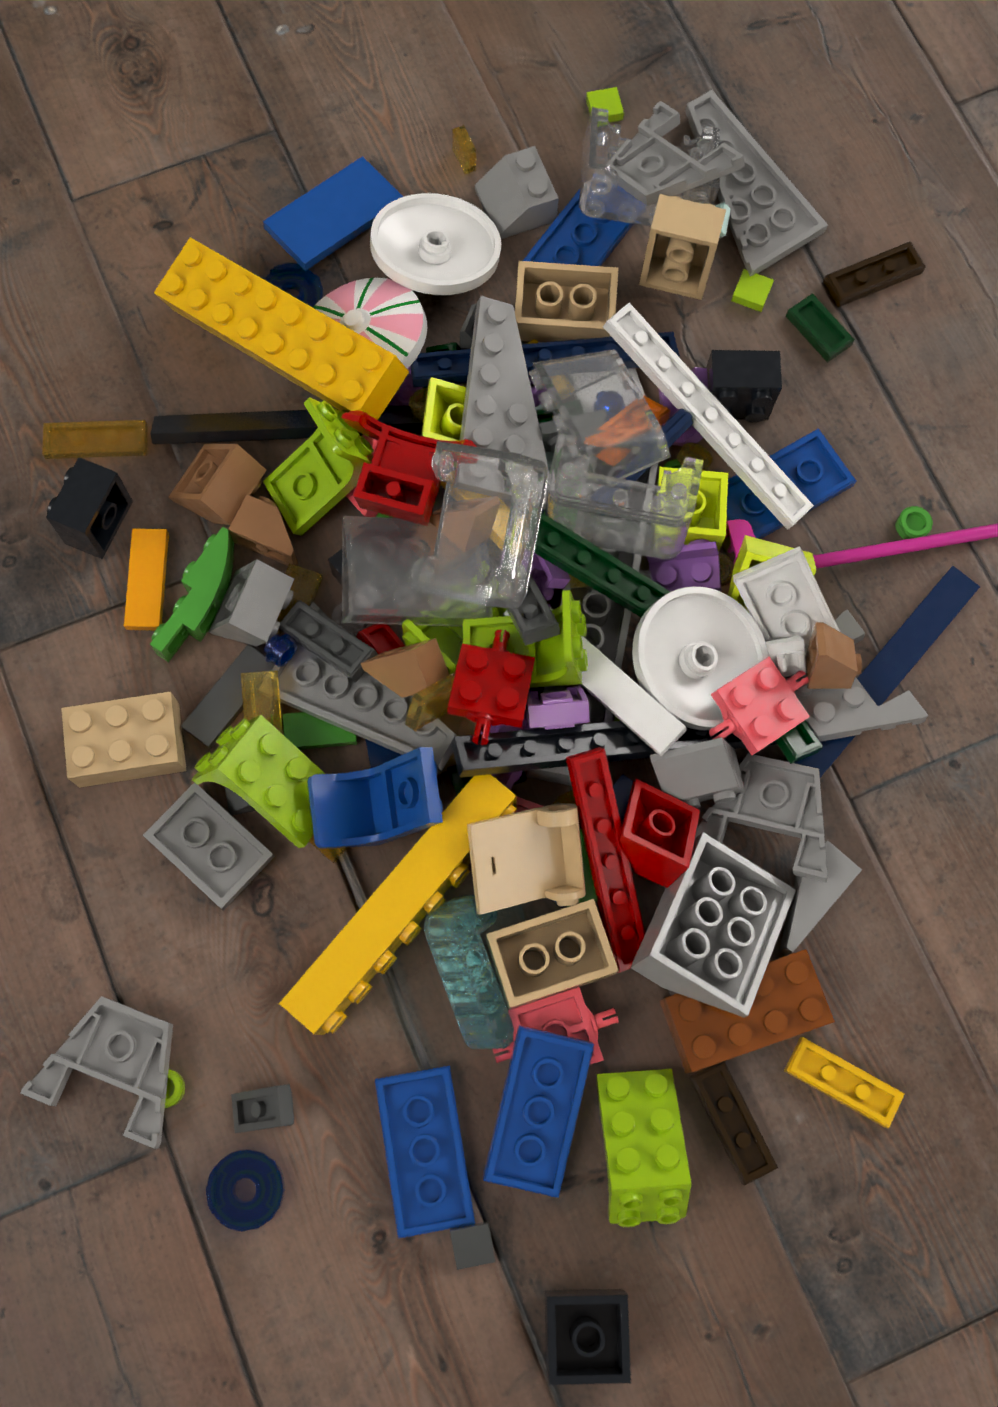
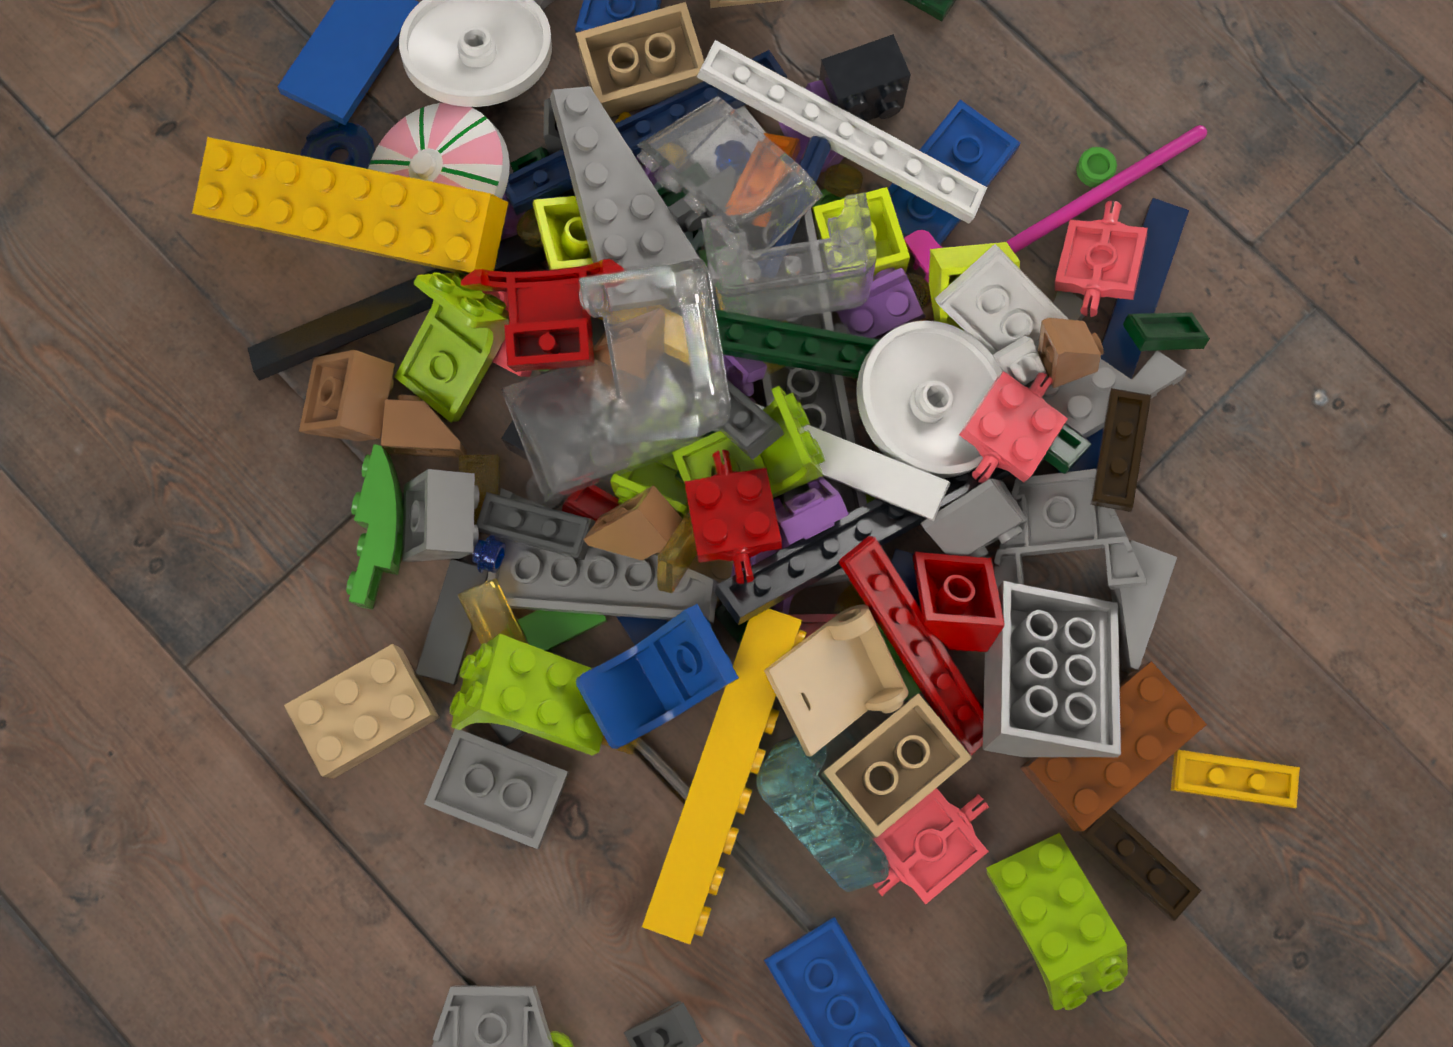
camera: 15 degrees left, 5 degrees up
(89, 507) = (221, 477): black brick -> none
(95, 439) = (193, 397): clear yellow tile -> none
(146, 579) = (313, 530): light orange tile -> none
(538, 1111) = (942, 928): blue tile -> none
(845, 760) = (1121, 450): none -> dark brown tile
(889, 598) = (1101, 259): none -> coral plate
(922, 678) = (1165, 331): none -> dark green tile

